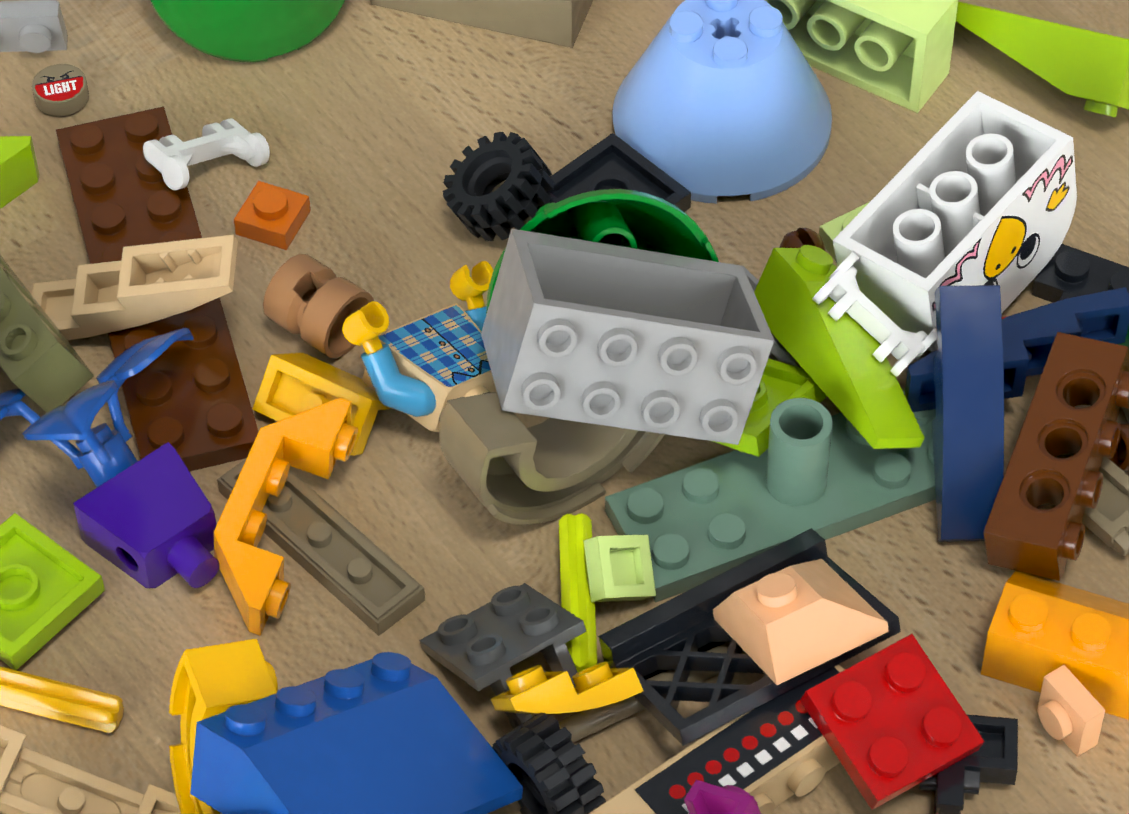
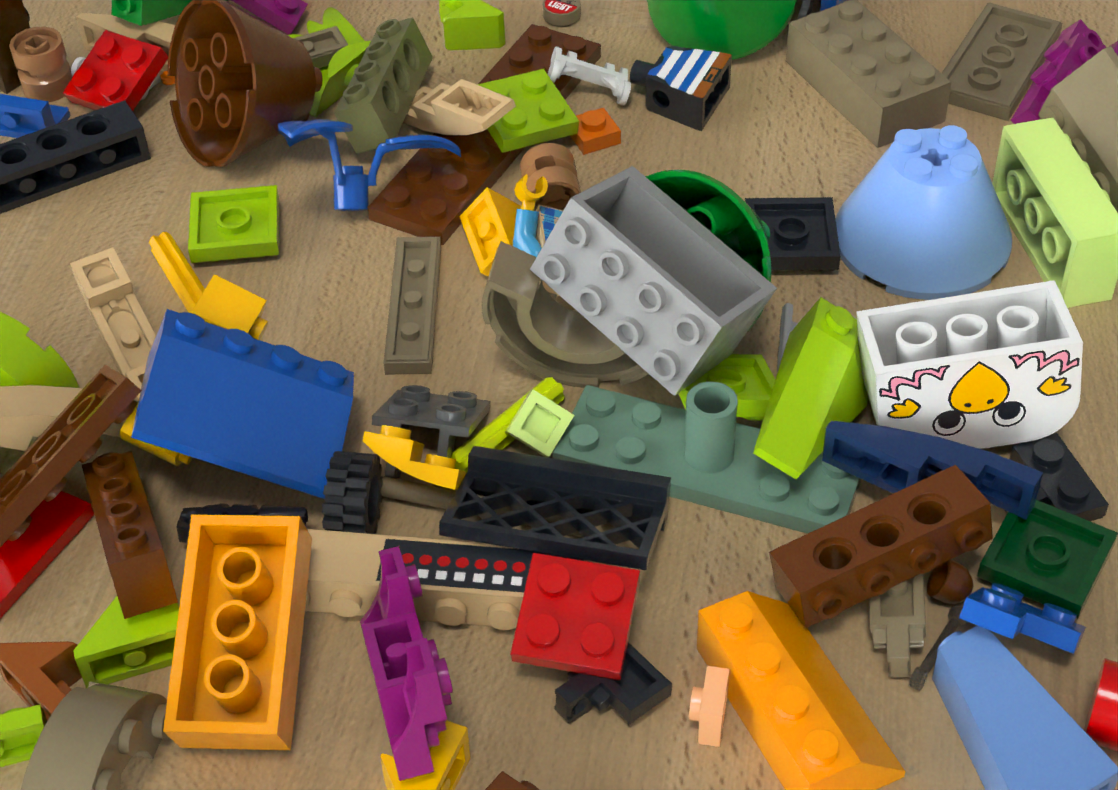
camera: 45 degrees right, 5 degrees down
(152, 522) = (339, 233): dark purple torso -> none
(188, 213) = (539, 111): none -> lime plate
(303, 441) = (456, 241): light orange slope -> none
(315, 99) = (684, 84): none -> torso
(482, 171) = (737, 171): black tyre -> none
(798, 619) = (584, 509): light nougat slope -> none
(848, 298) = (833, 345): white piece -> none
(968, 409) = (848, 459): dark blue slope -> none

